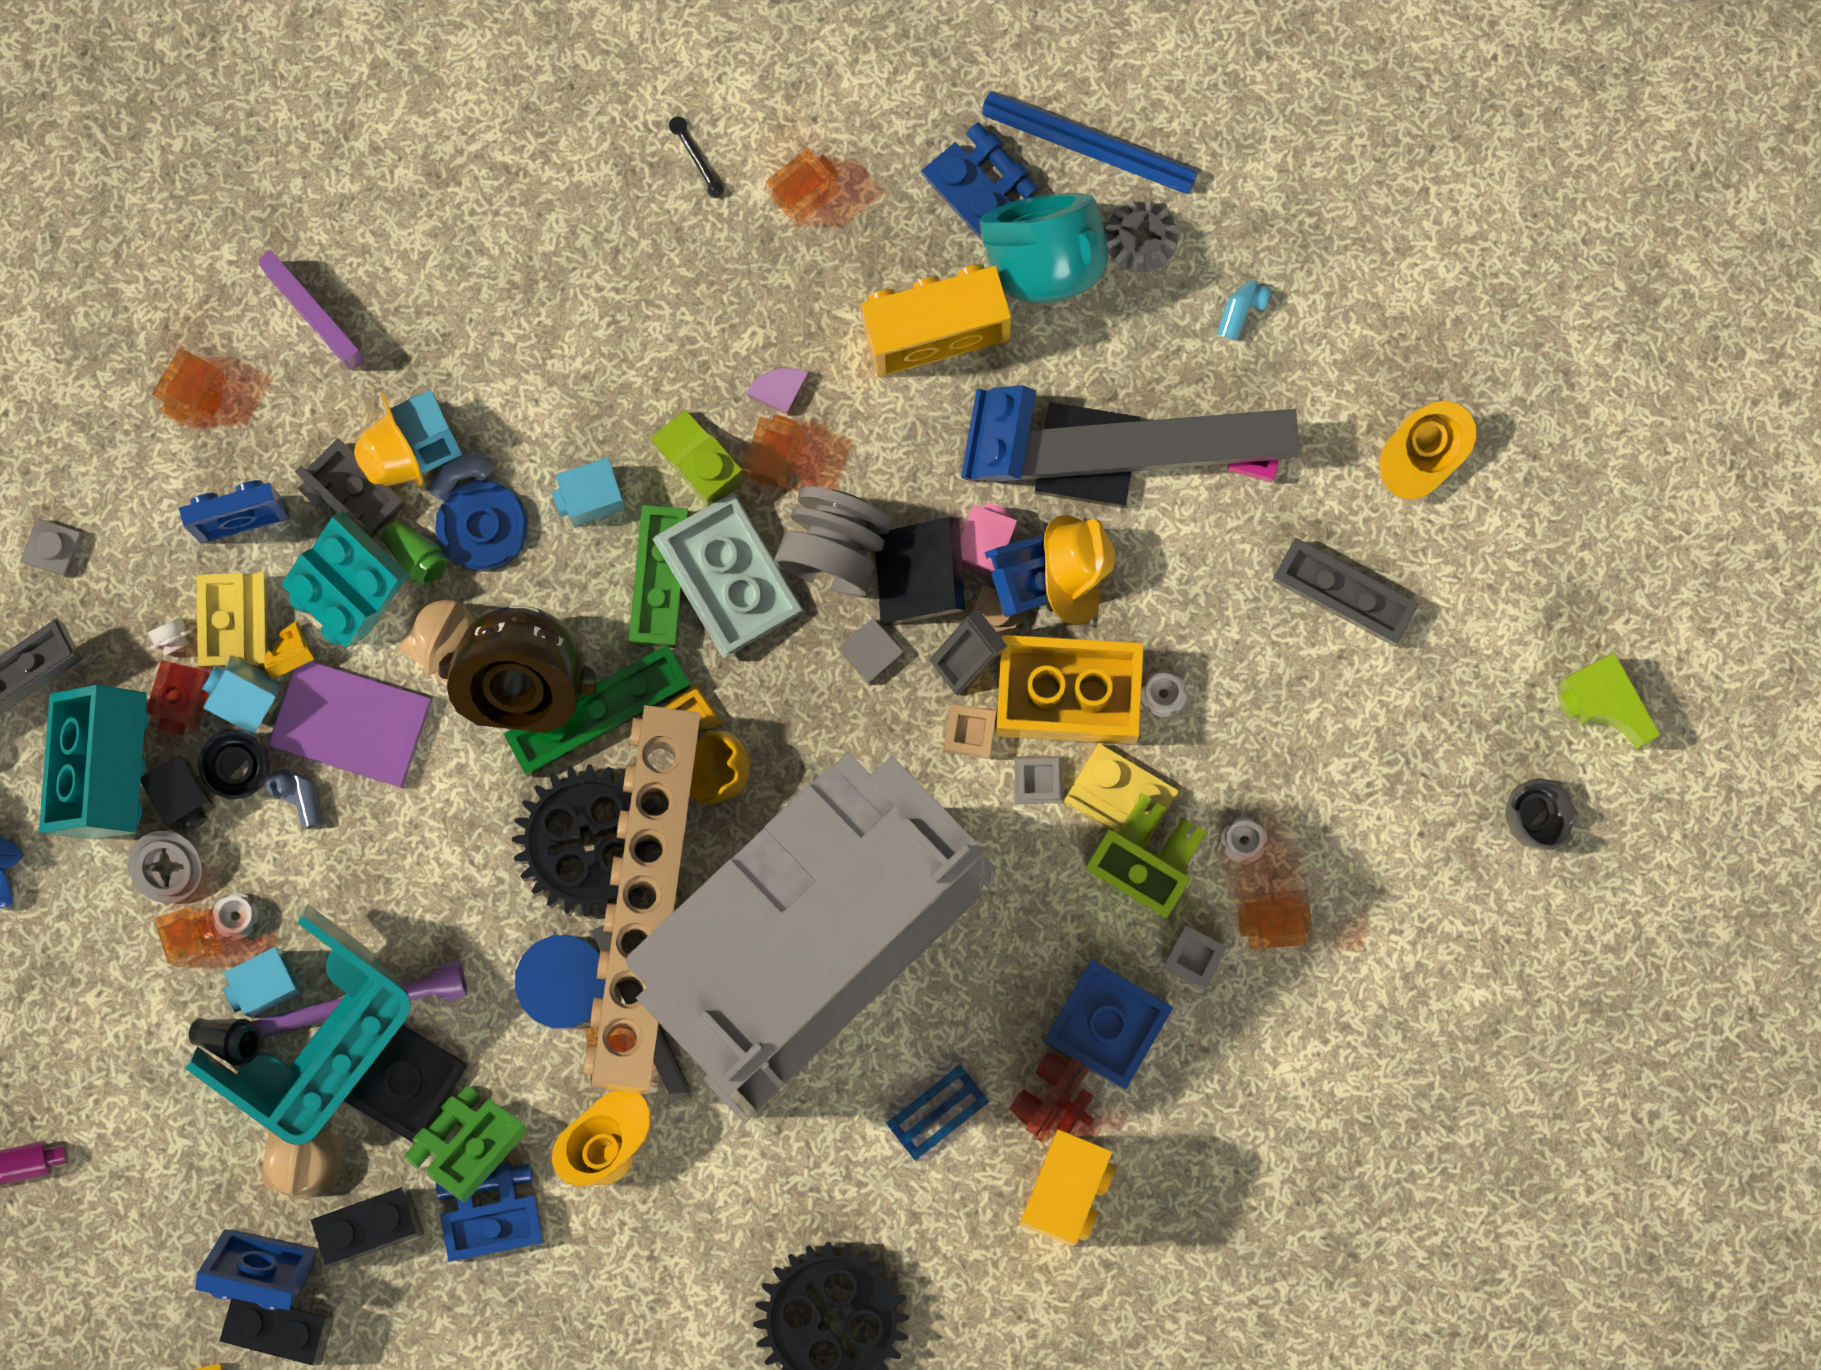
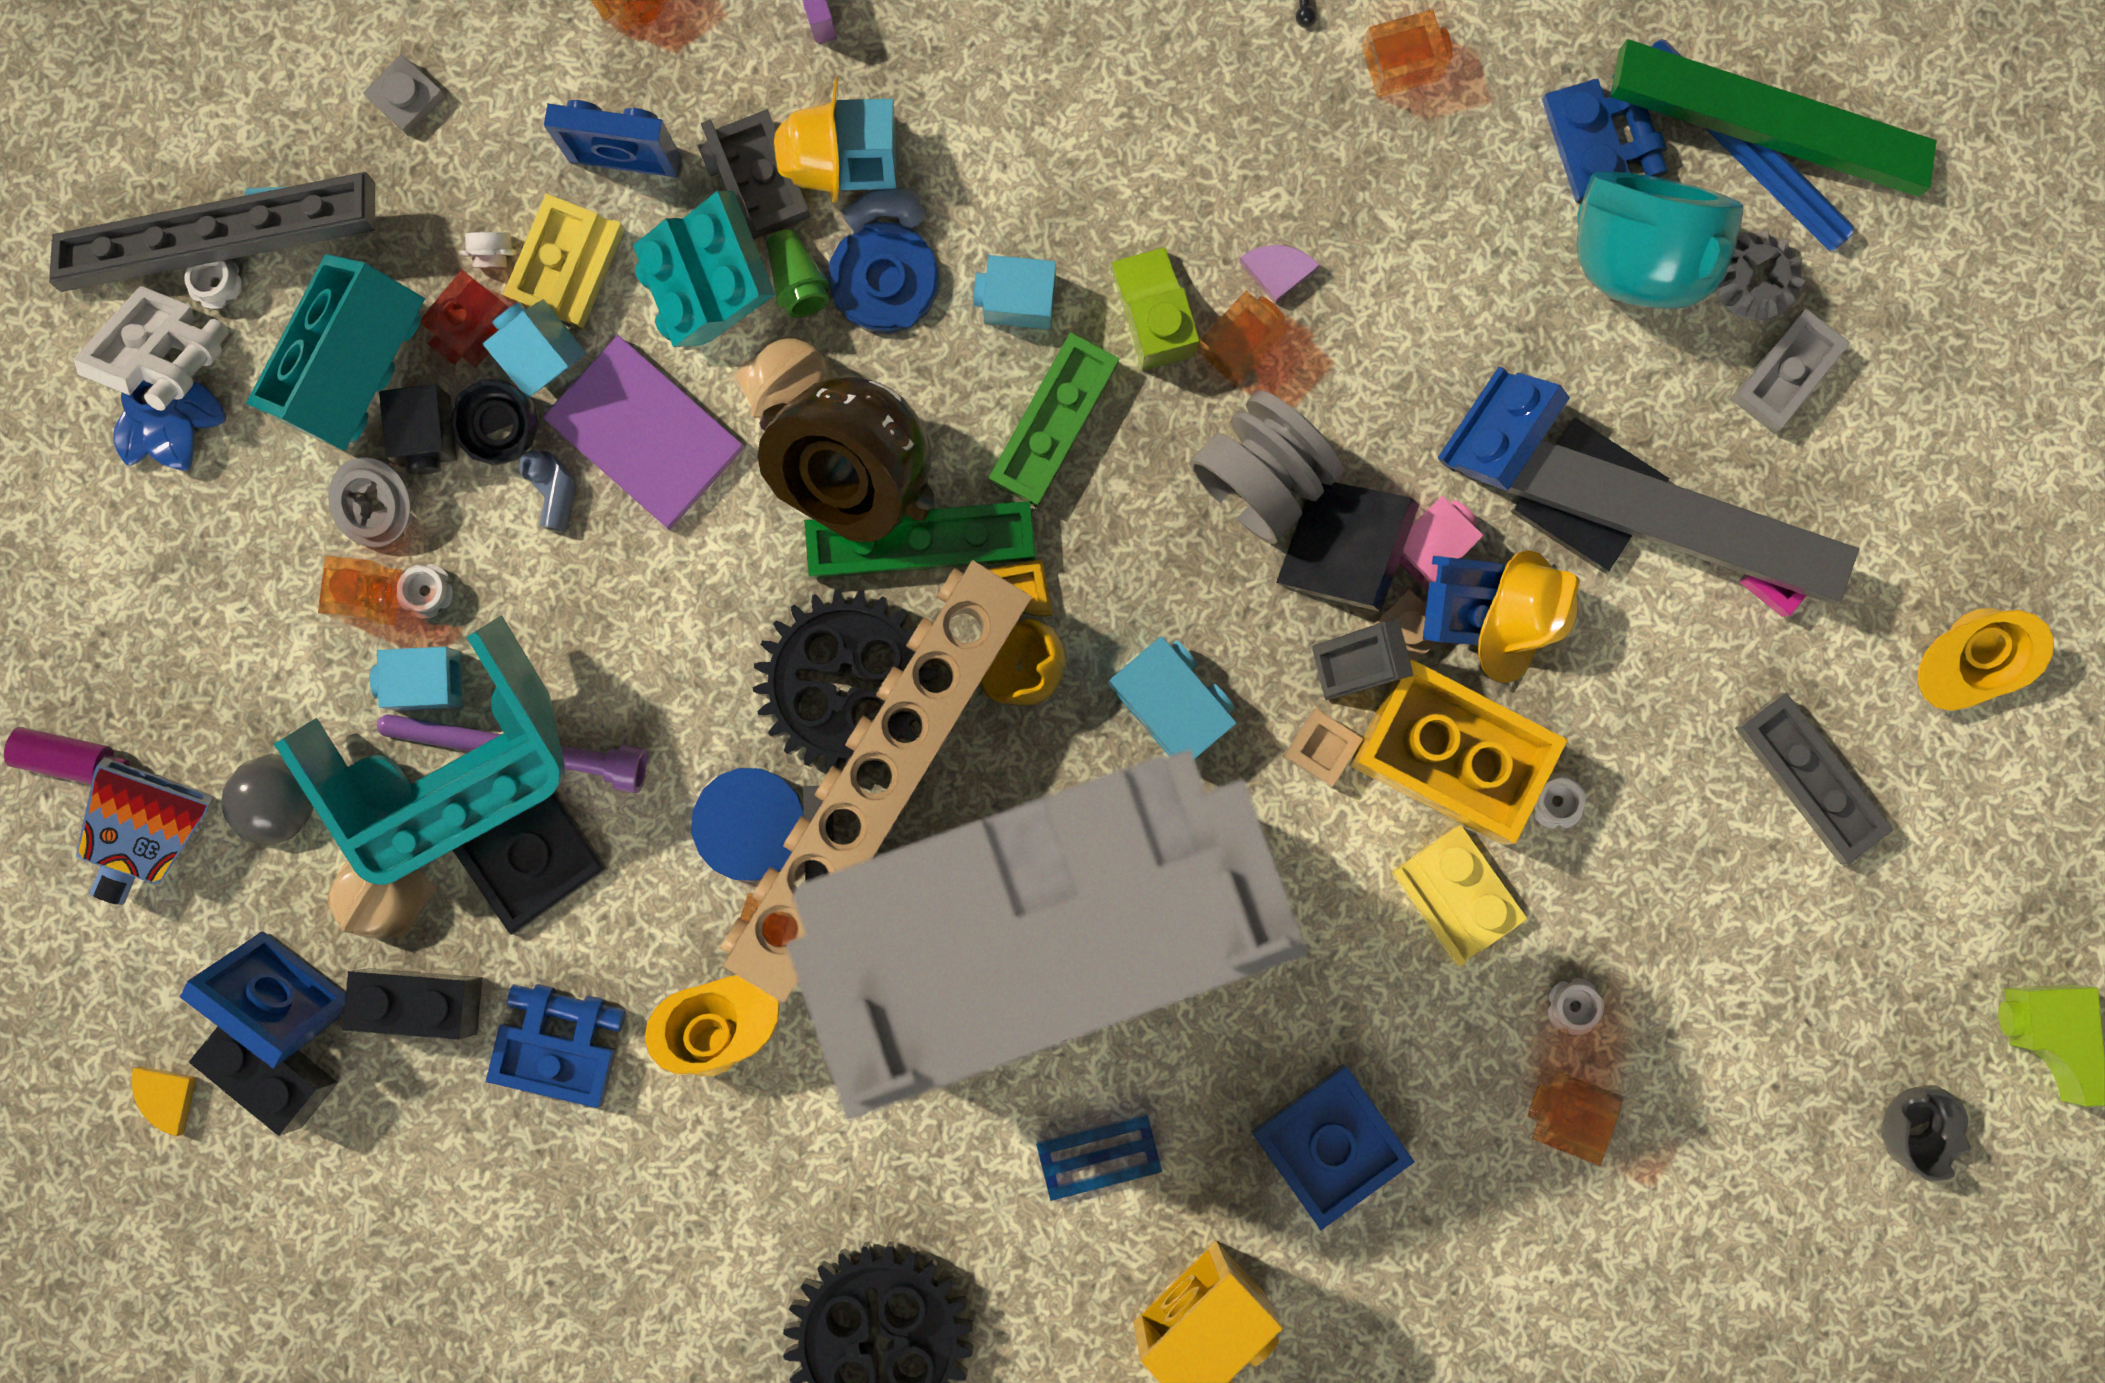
camera: 20 degrees right, 5 degrees up
(97, 1189) = (135, 827): none -> torso
(185, 1127) = (265, 801): none -> dark grey hair
(228, 1039) = (353, 726): black cone -> none
(289, 652) = (609, 325): yellow tile -> none
(473, 1151) = (567, 972): bright green plate -> none
(728, 575) = (1131, 452): light aqua tile -> none
(828, 735) = (1172, 699): none -> medium azure brick
(870, 651) = (1251, 608): light grey tile -> none
(936, 319) = (1493, 266): yellow brick -> none
(1038, 779) = (1374, 835): light grey tile -> none
(1065, 1079) = (1212, 1215): clear red hips -> none
(1098, 116) = (1773, 118): none -> green tile
(1145, 877) = (1456, 1010): lime brick -> none
(1194, 297) = (1790, 370): none -> light grey plate
(1195, 957) = (1463, 1114): light grey plate -> none
(1238, 305) = (1834, 402): medium azure arm -> none

